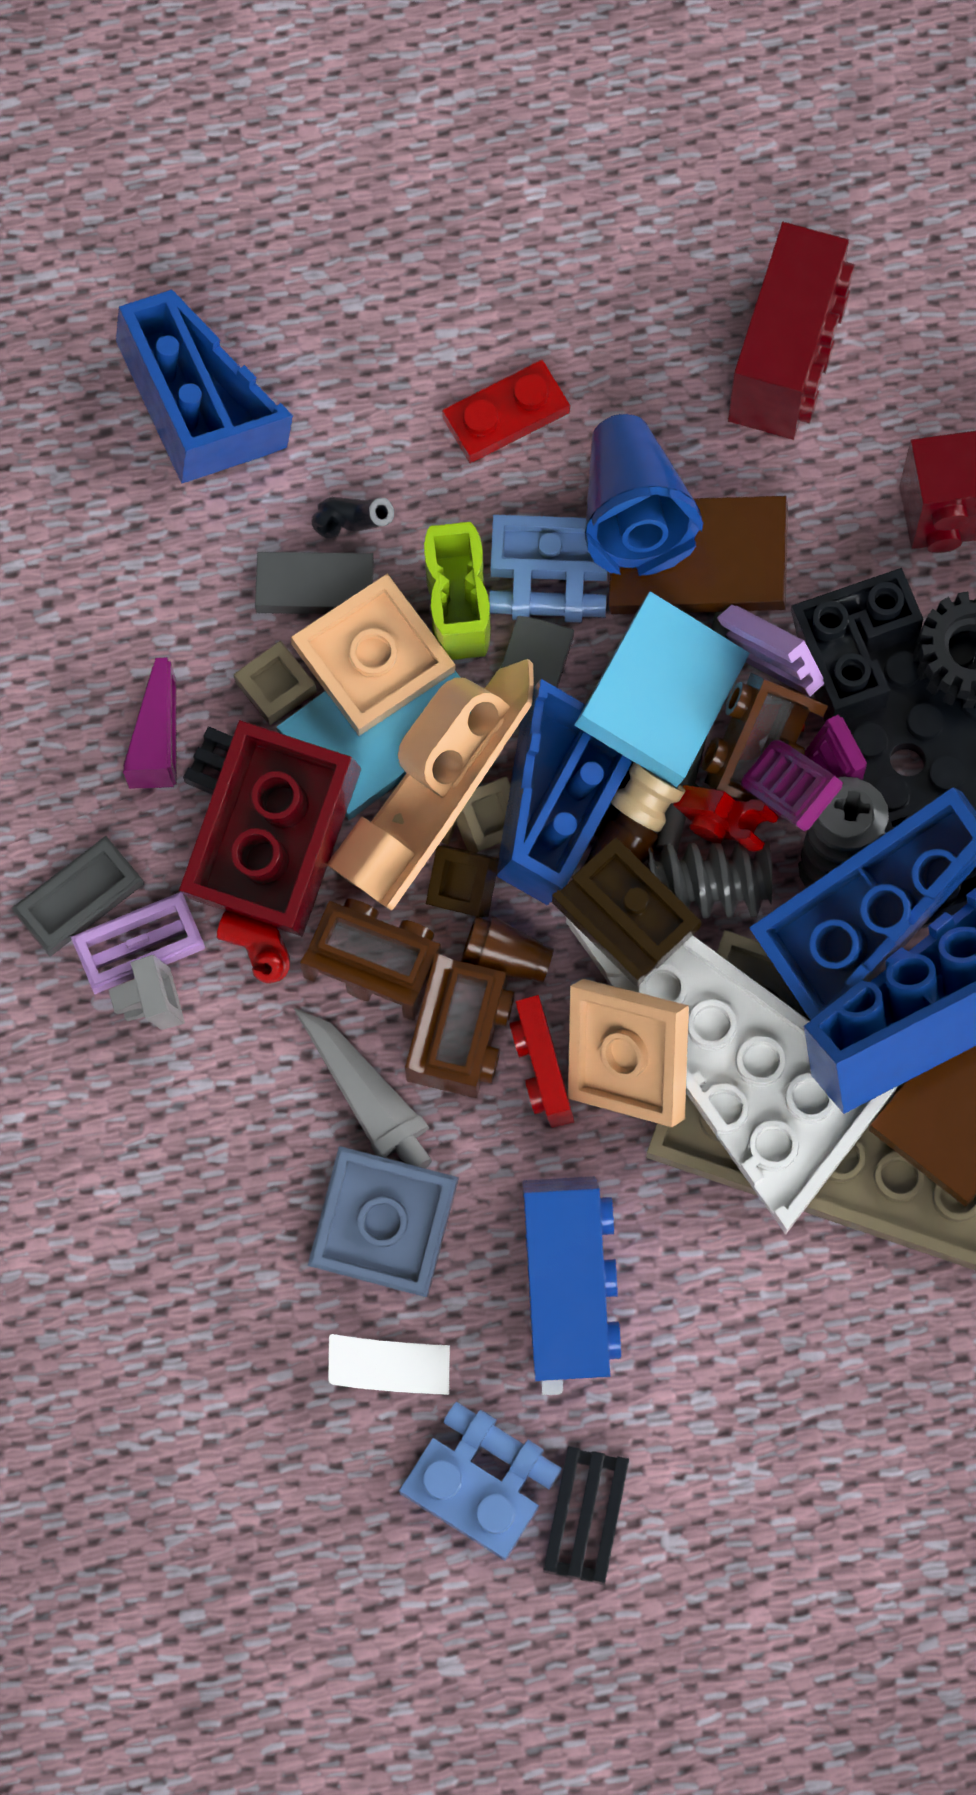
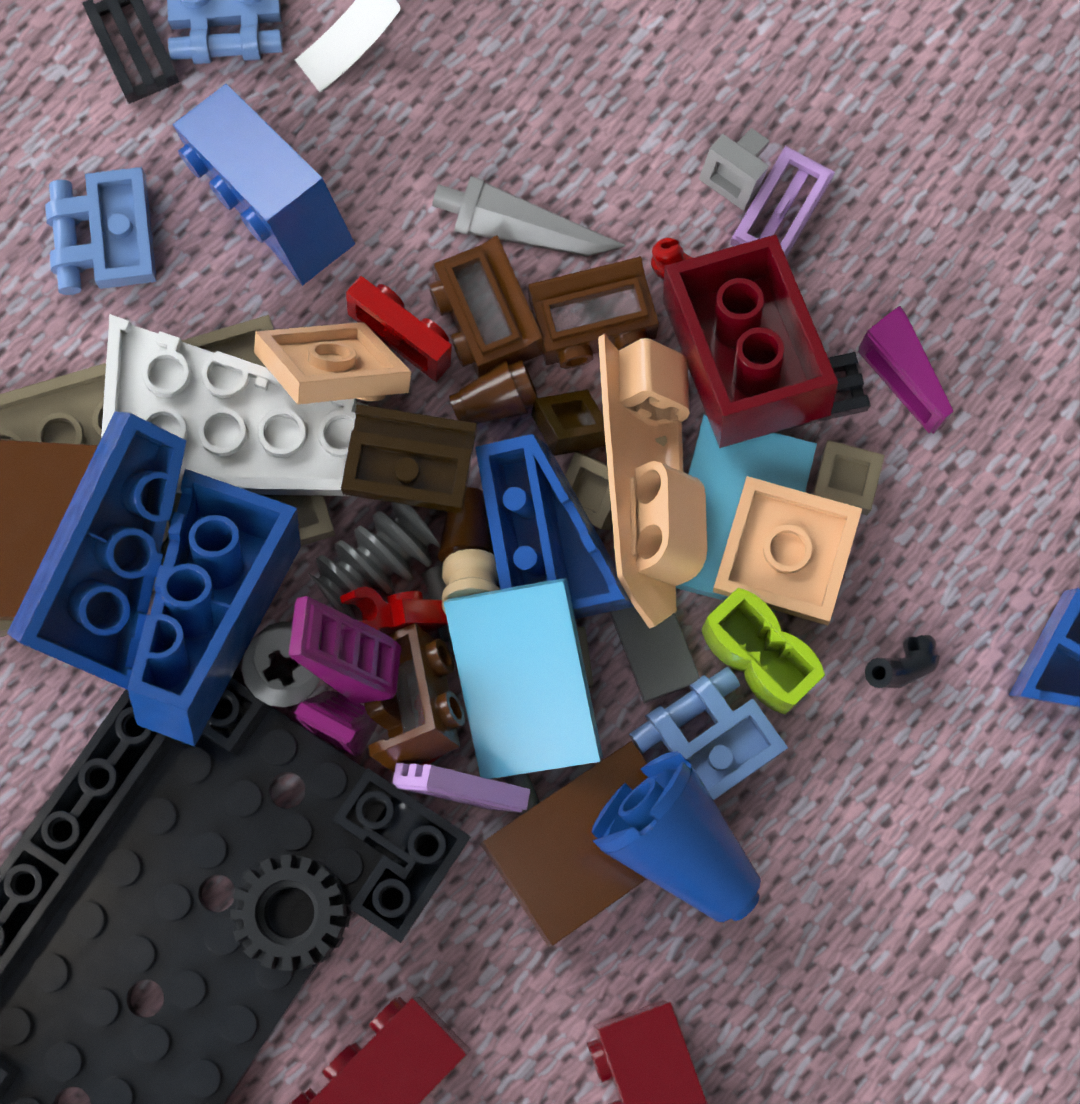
camera: 140 degrees right, 5 degrees up
(78, 896) = (857, 210): dark grey tile -> none
(309, 580) = (889, 588): dark grey tile -> none
(383, 1221) = (432, 133): sand blue tile -> none
(506, 411) = (855, 861): red plate -> none
(719, 1335) = (119, 230): none -> medium blue plate

